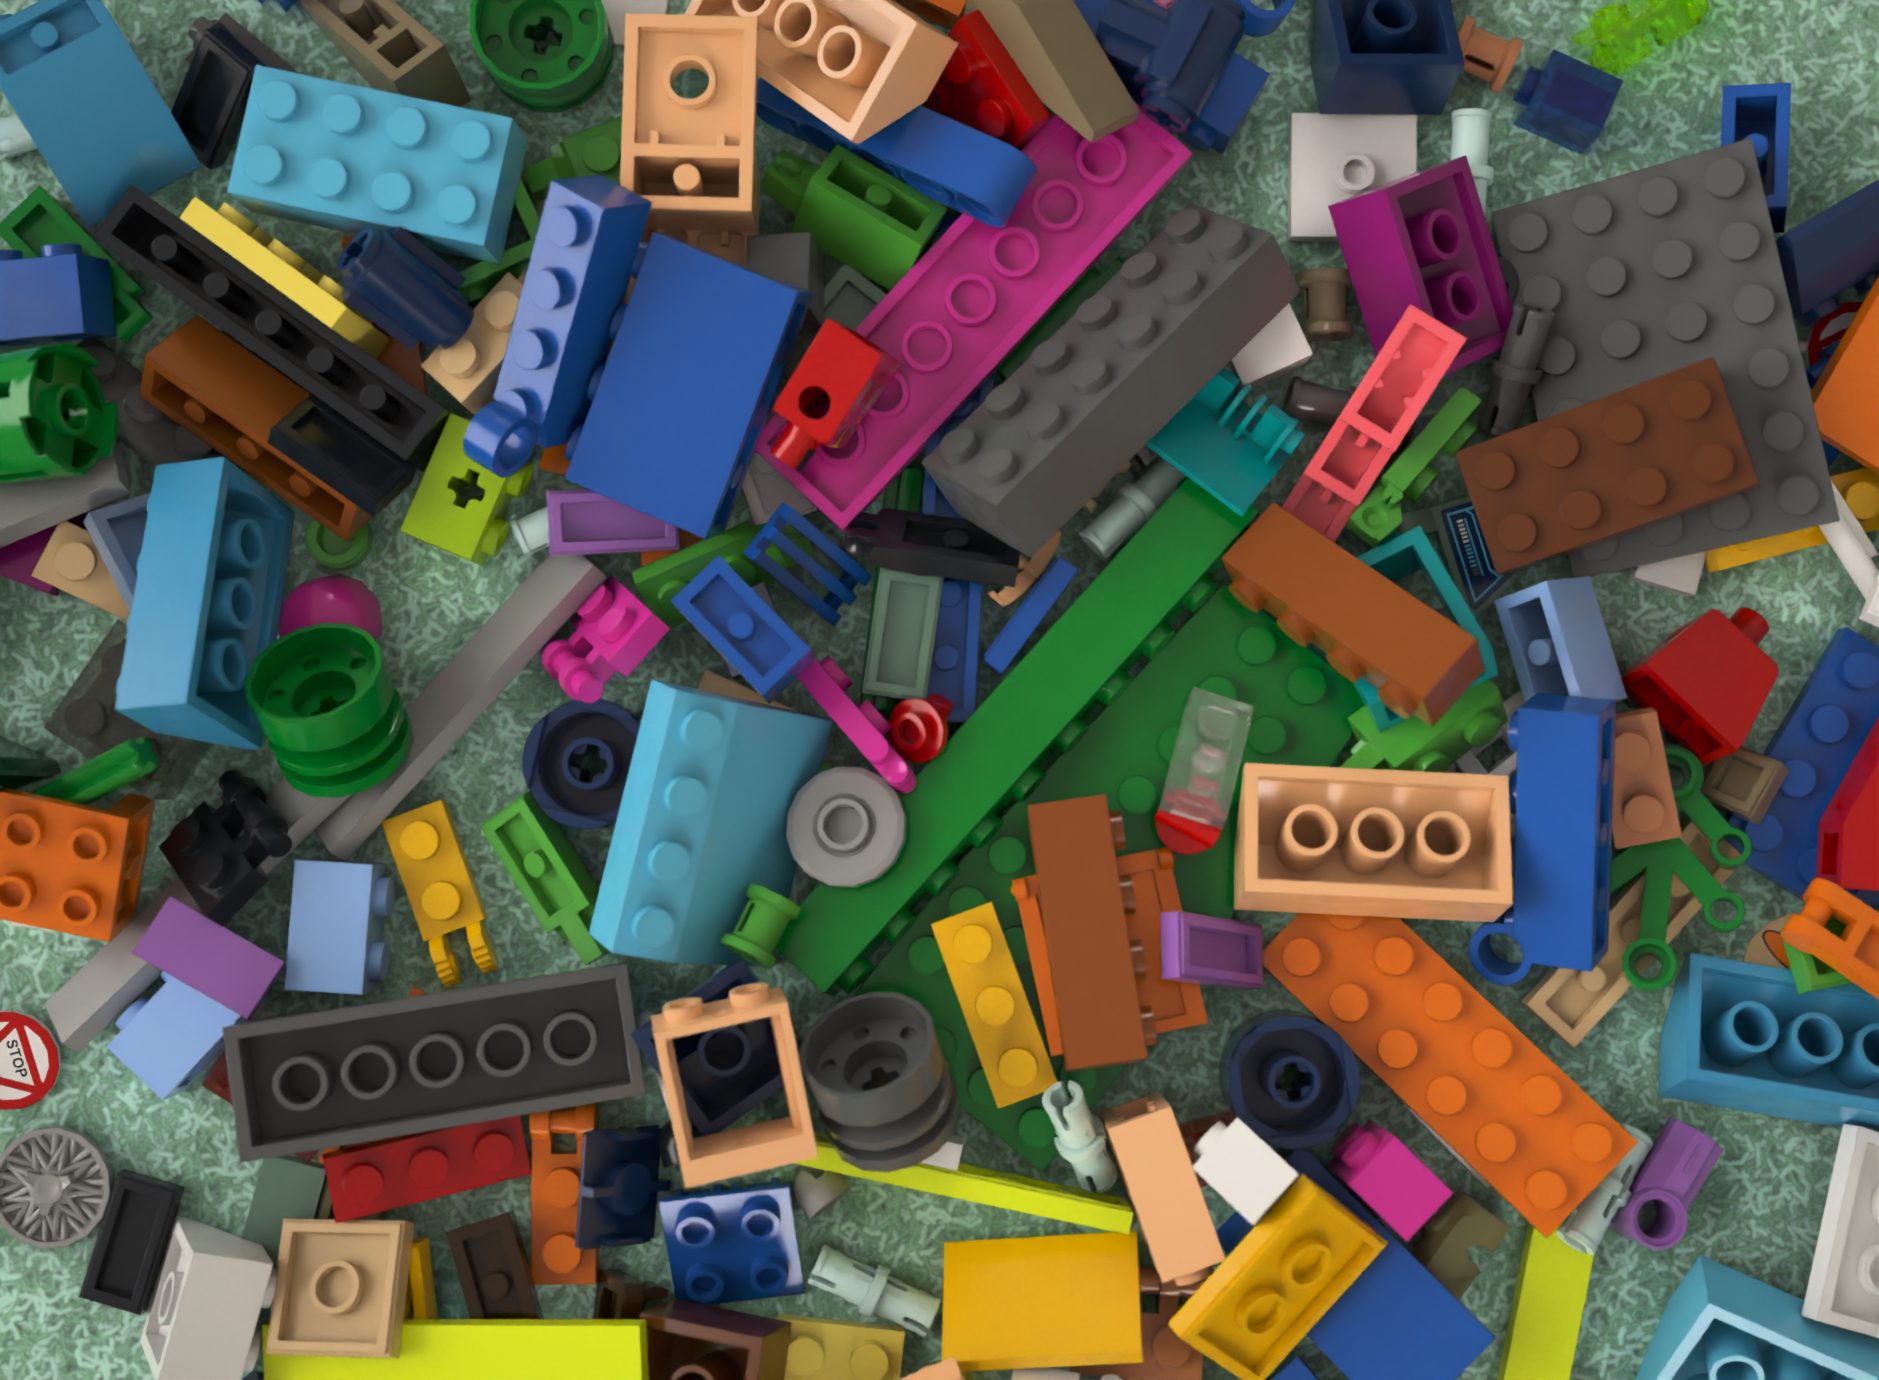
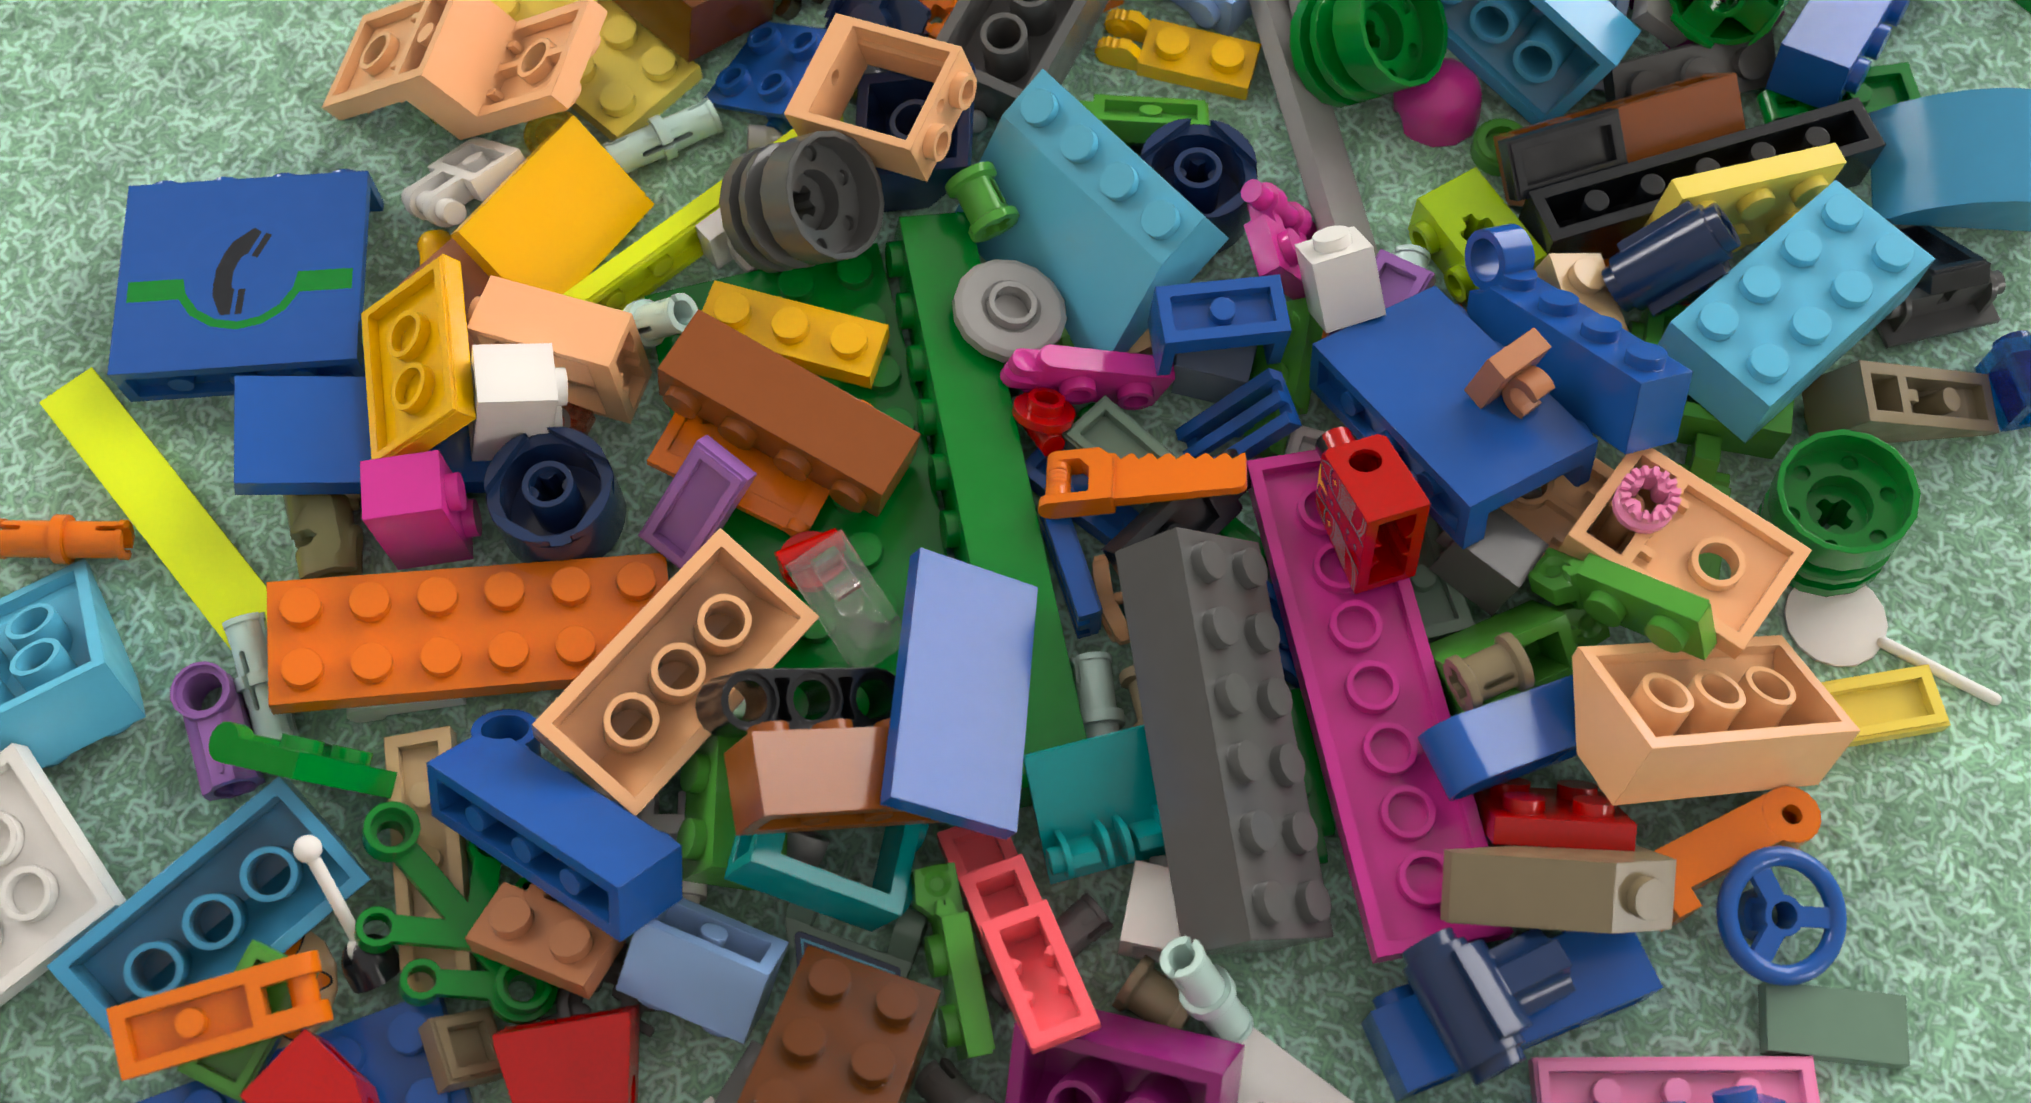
camera: 130 degrees right, 20 degrees down
(626, 555) = (1340, 278): none -> white brick
(645, 335) = (1514, 376): none -> nougat tile
(690, 145) = (1662, 492): none -> bright pink bush
(772, 143) = (1627, 598): none -> bright green hinge
(911, 204) = (1489, 672): none -> dark tan bush
(934, 598) = (1134, 480): none -> orange piece
(1234, 594) = (960, 696): none -> tile
(1310, 260) = (1206, 990): none -> light aqua pin
(1340, 743) = (771, 694): none -> black beam
(1667, 1064) = (300, 759): none -> green plate
(1754, 899) = (360, 968): none -> hinge

